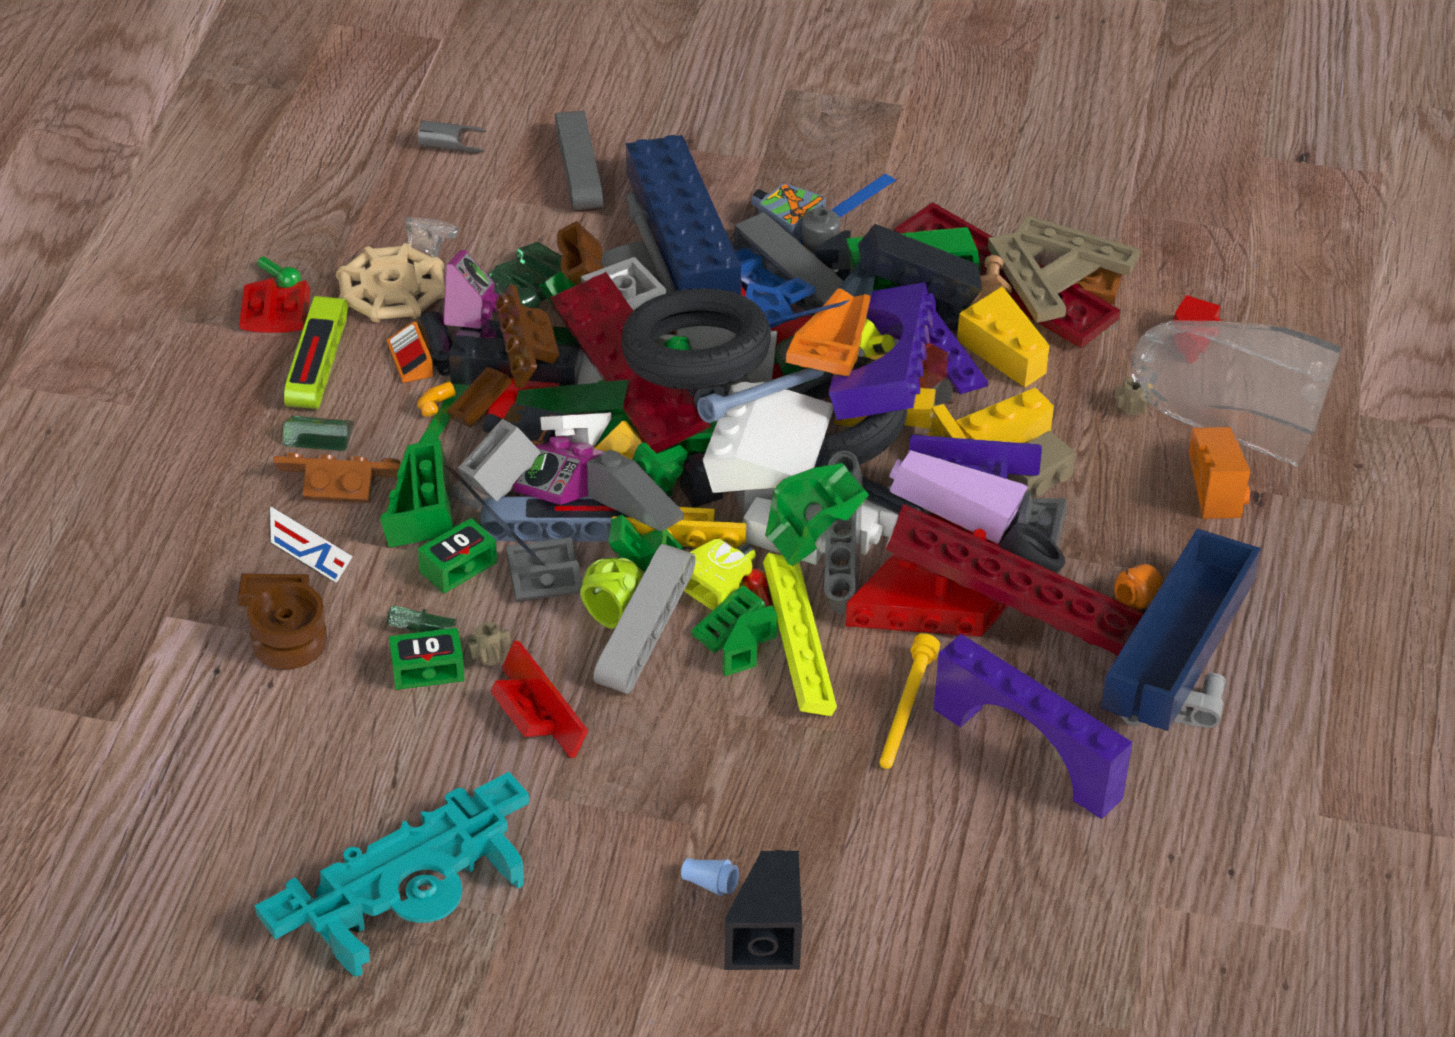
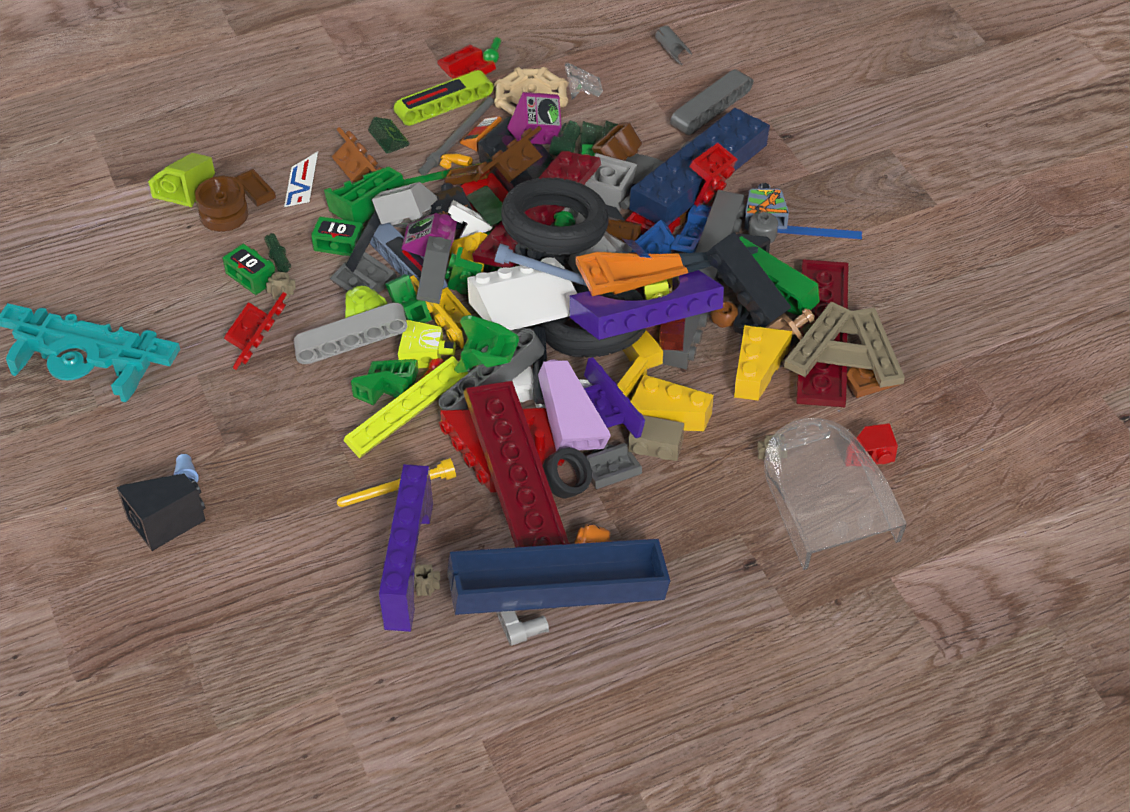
camera: 55 degrees right, 5 degrees up
(195, 642) = (181, 179): none -> lime slope
(410, 411) = (435, 157): none -> dark grey bar
(722, 201) = (714, 167): none -> red bracket
(961, 369) = (707, 341): dark purple bracket -> none
(1219, 472) = (740, 526): orange wedge -> none

